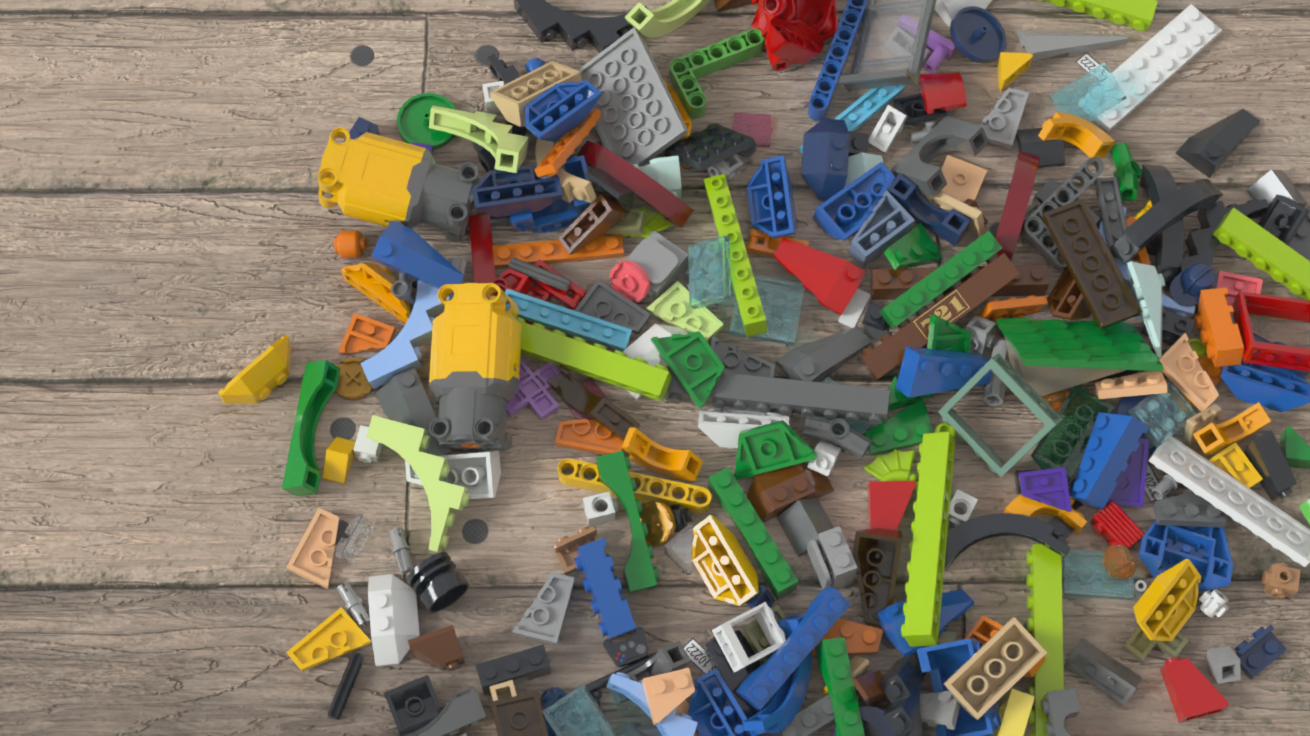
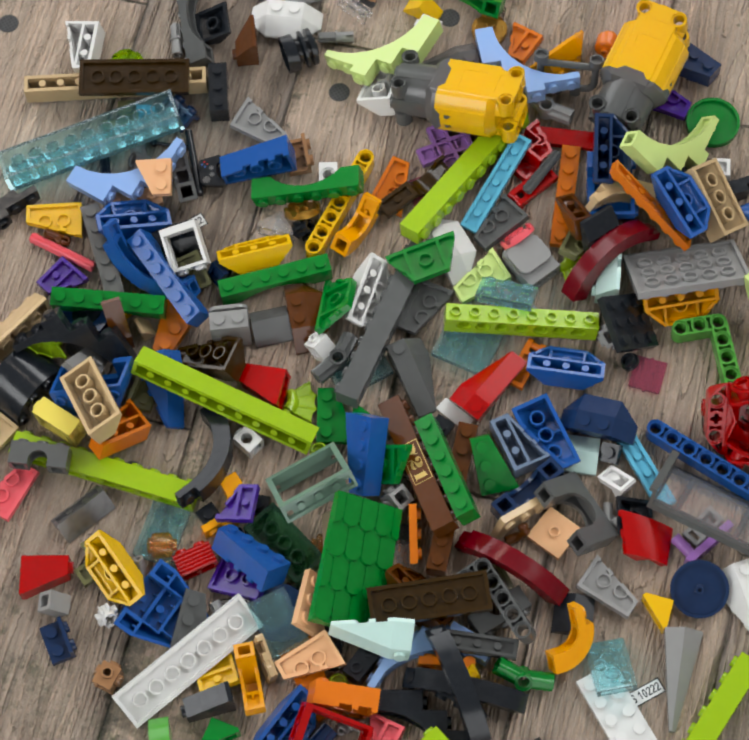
camera: 110 degrees right, 0 degrees up
(411, 255) = (566, 63): blue wedge -> none
(1187, 285) = (395, 694): dark blue piece -> none

